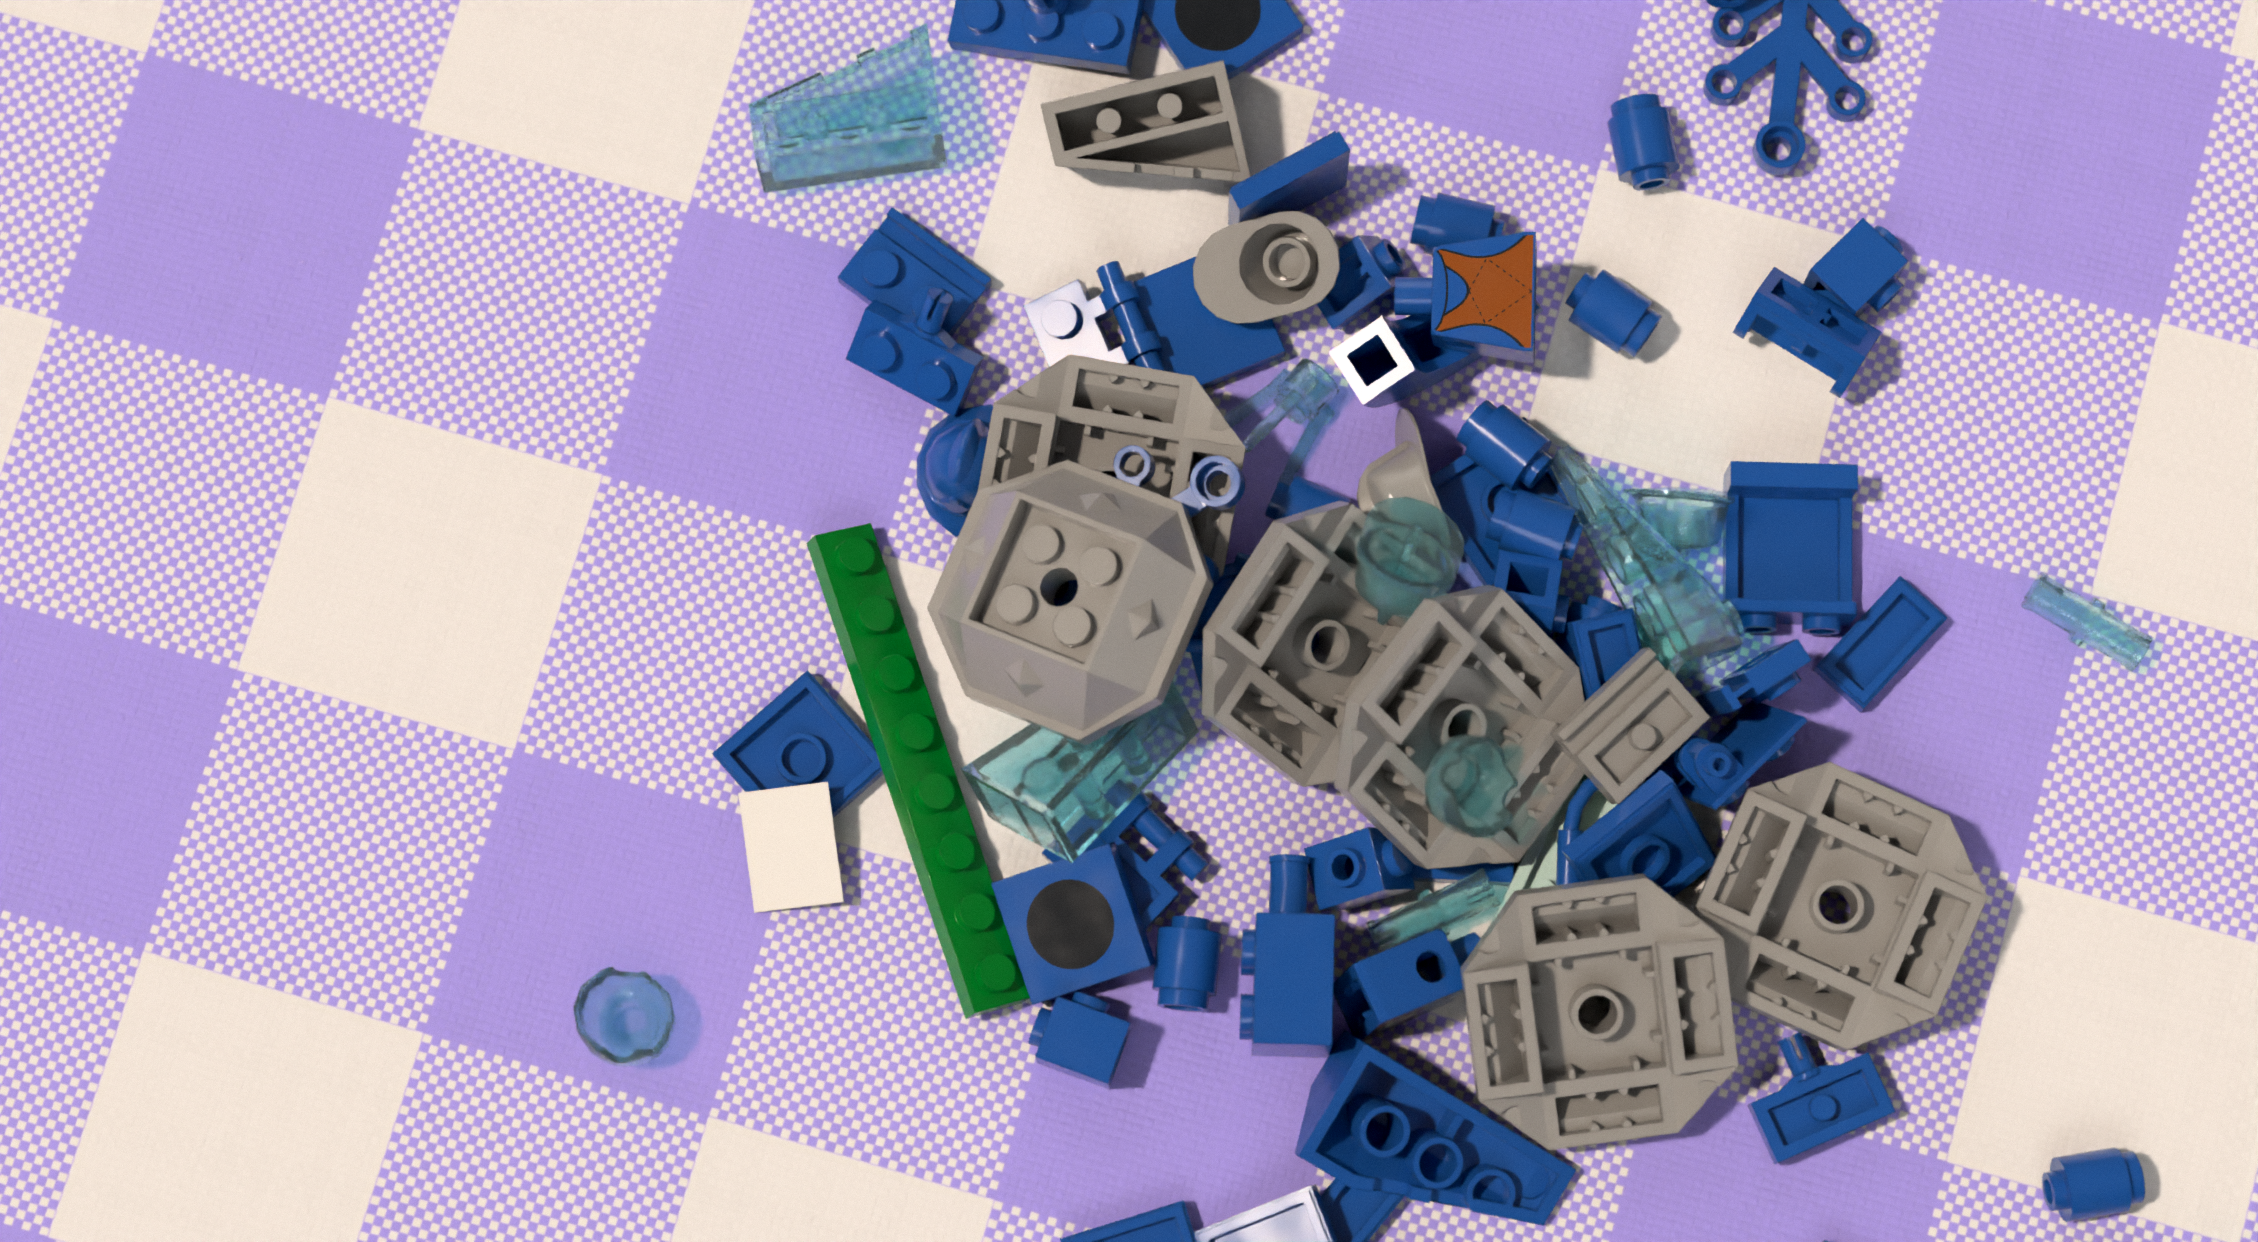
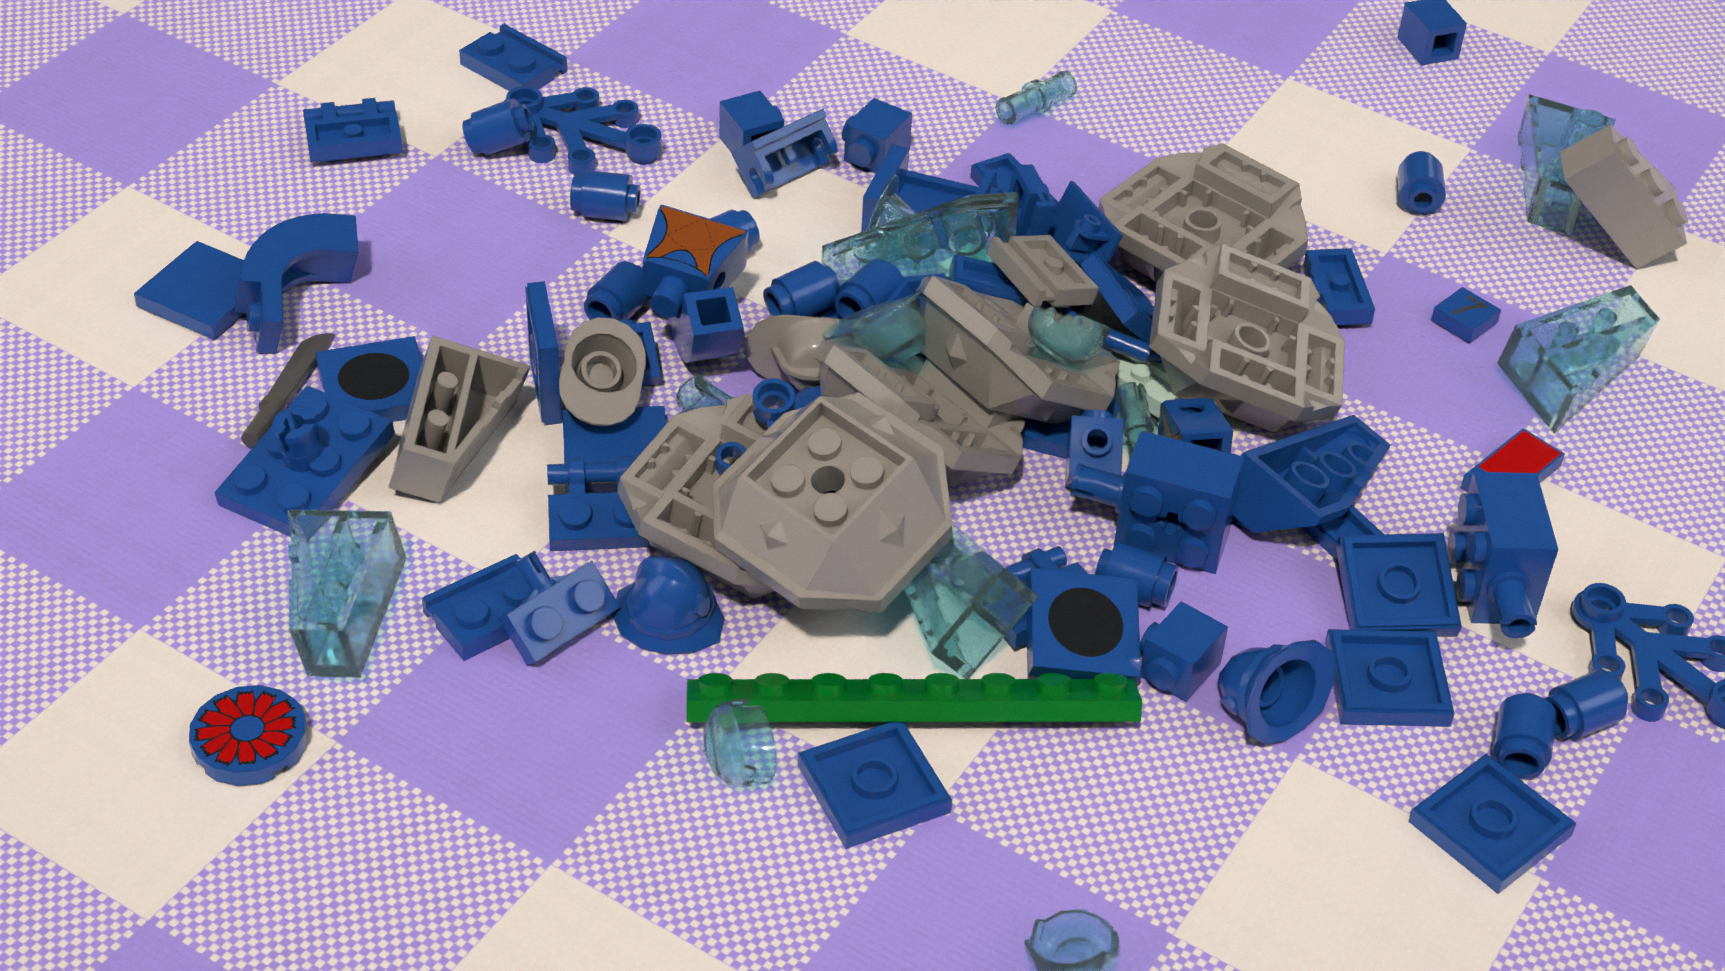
camera: 80 degrees left, 35 degrees down
(658, 116) = (248, 734): none -> tile
(783, 611) = (740, 744): none -> clear light blue hair
(791, 847) = (952, 800): white sticker -> none
(1049, 1149) = (1278, 687): none -> blue piece
(1900, 436) = (873, 132): none -> blue brick

